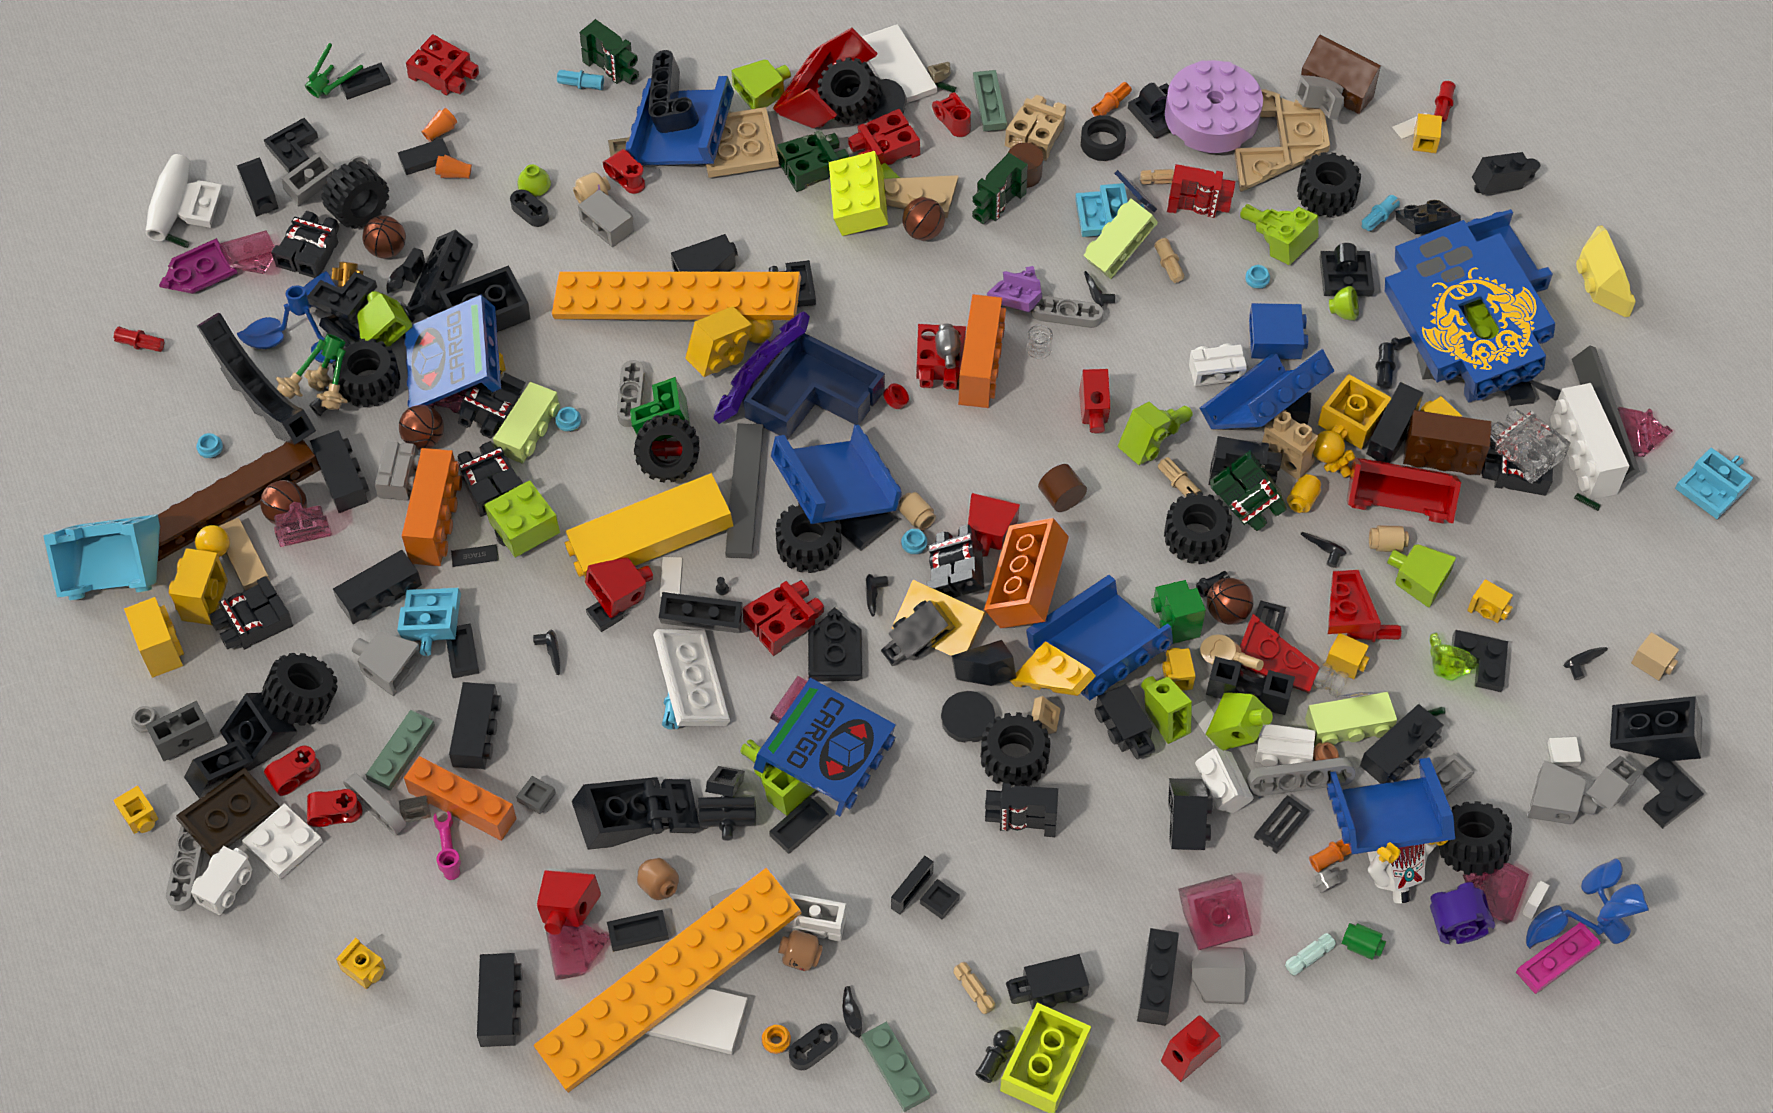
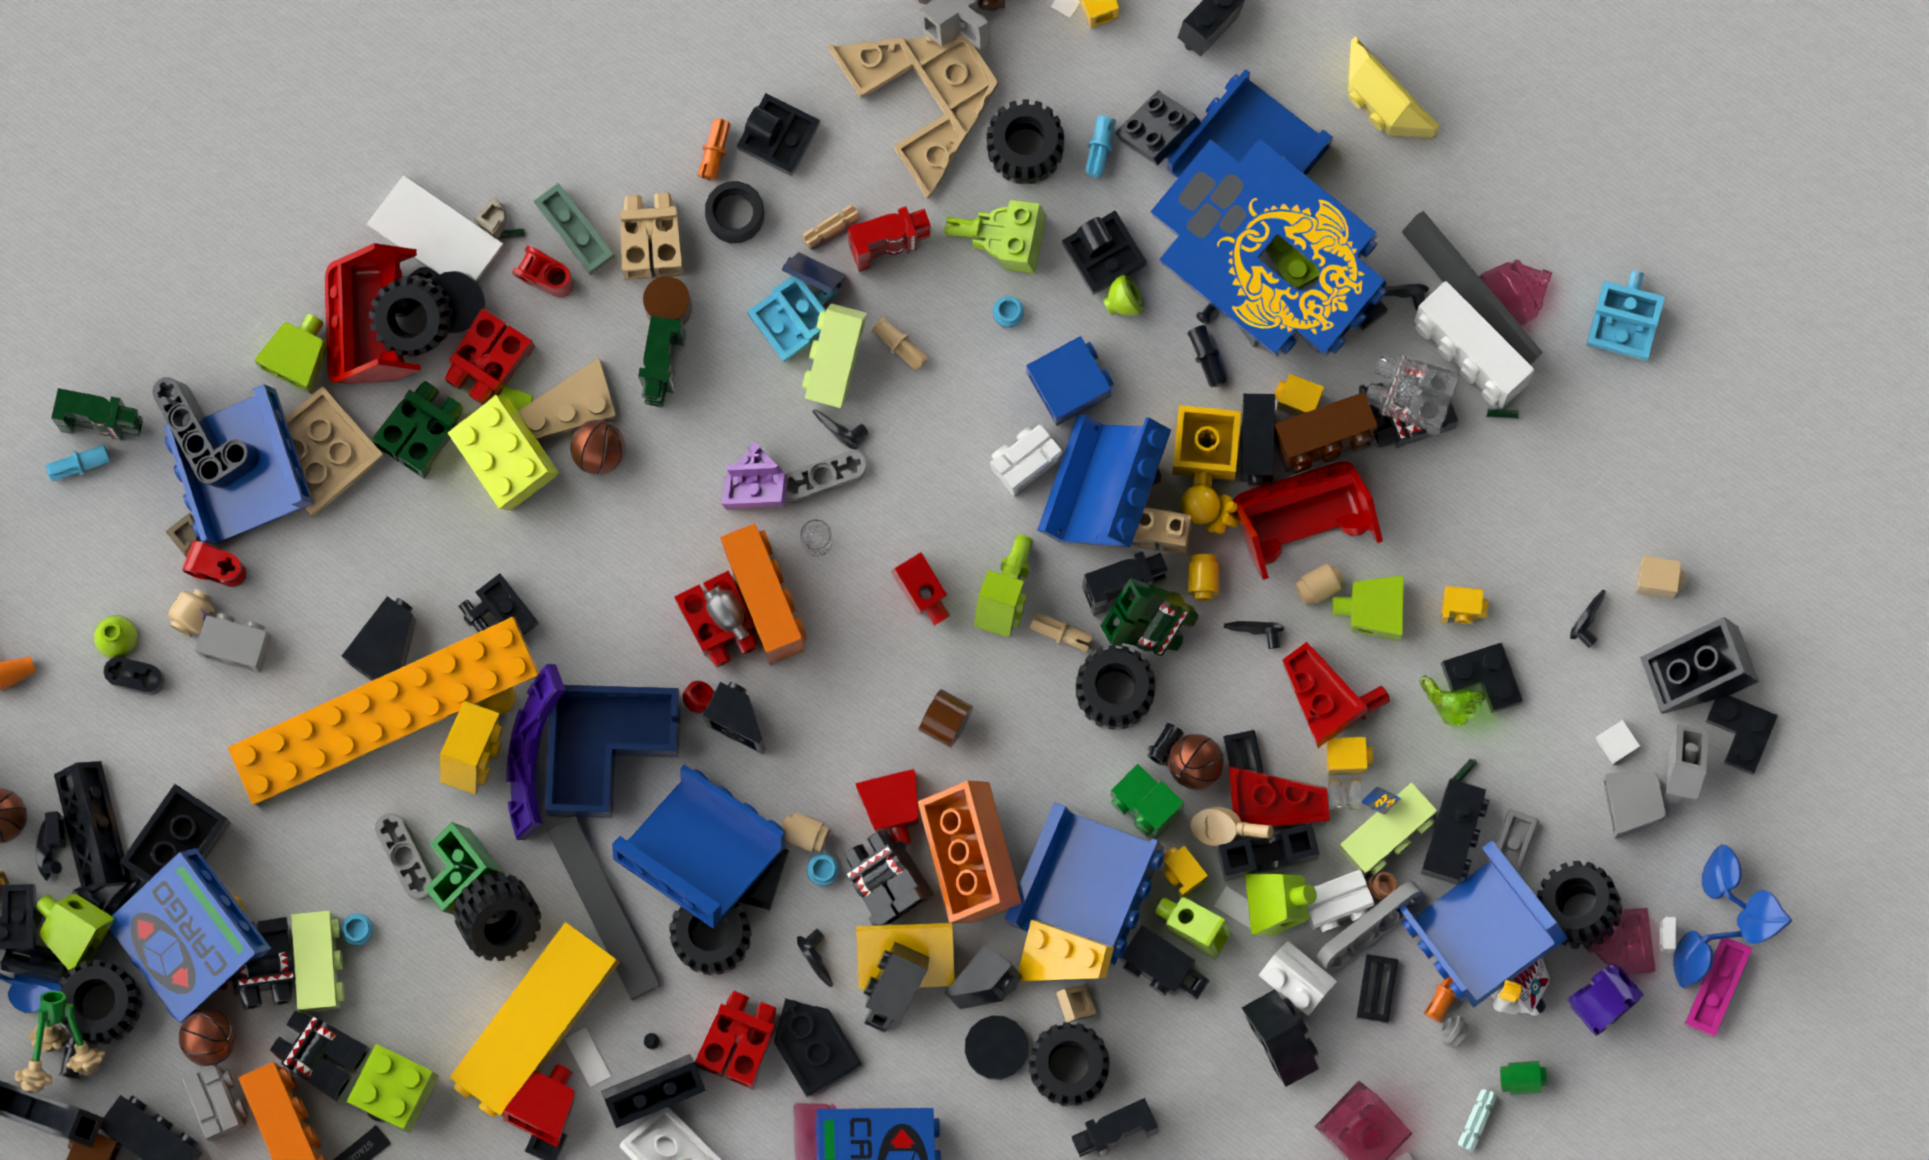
camera: 25 degrees left, 20 degrees up
(911, 412) = (733, 716): none -> black slope
(1213, 106) = (844, 76): lavender brick -> none

